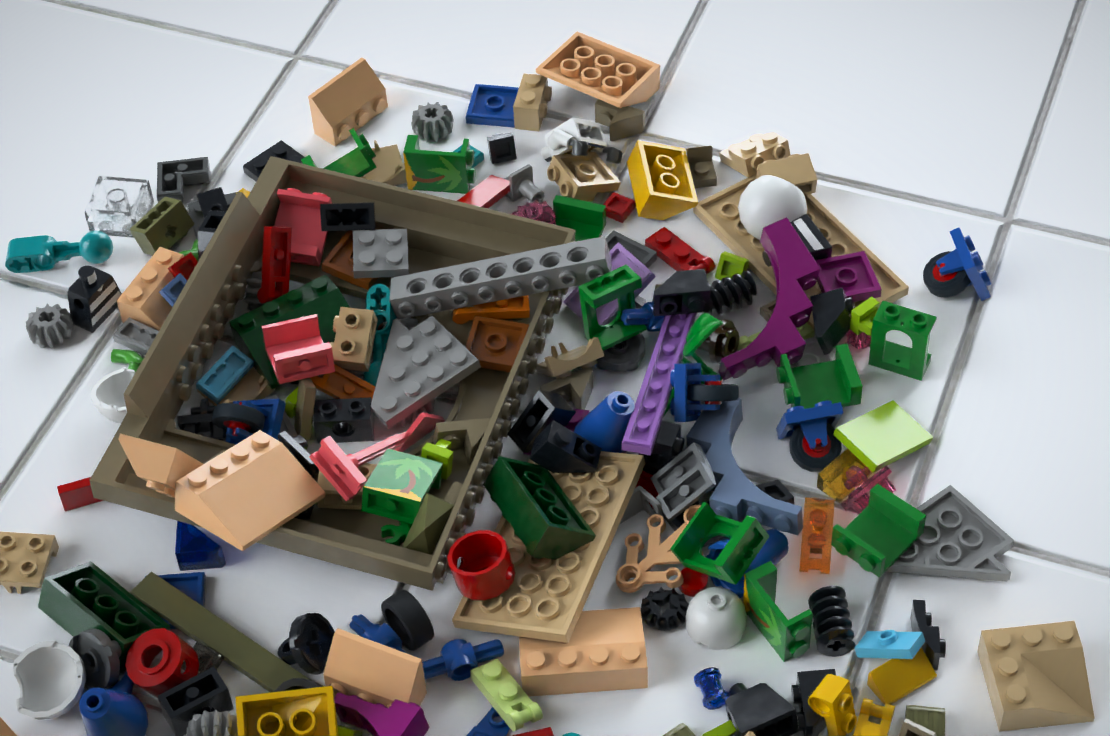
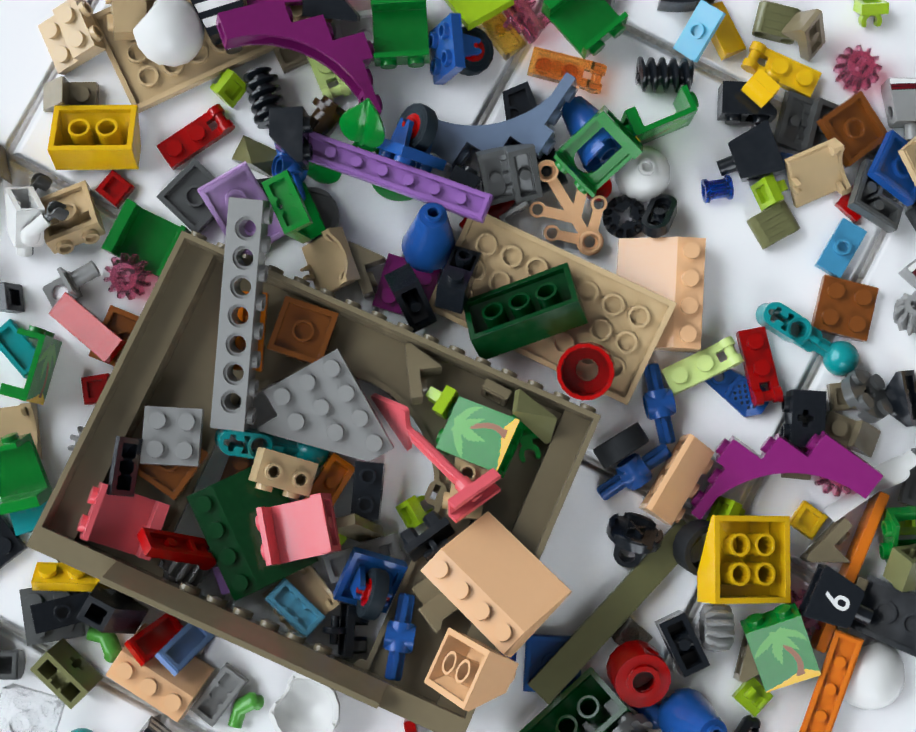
camera: 85 degrees left, 35 degrees up
(197, 442) = (399, 637): none -> blue axle
(668, 630) = (659, 215): none -> black plate

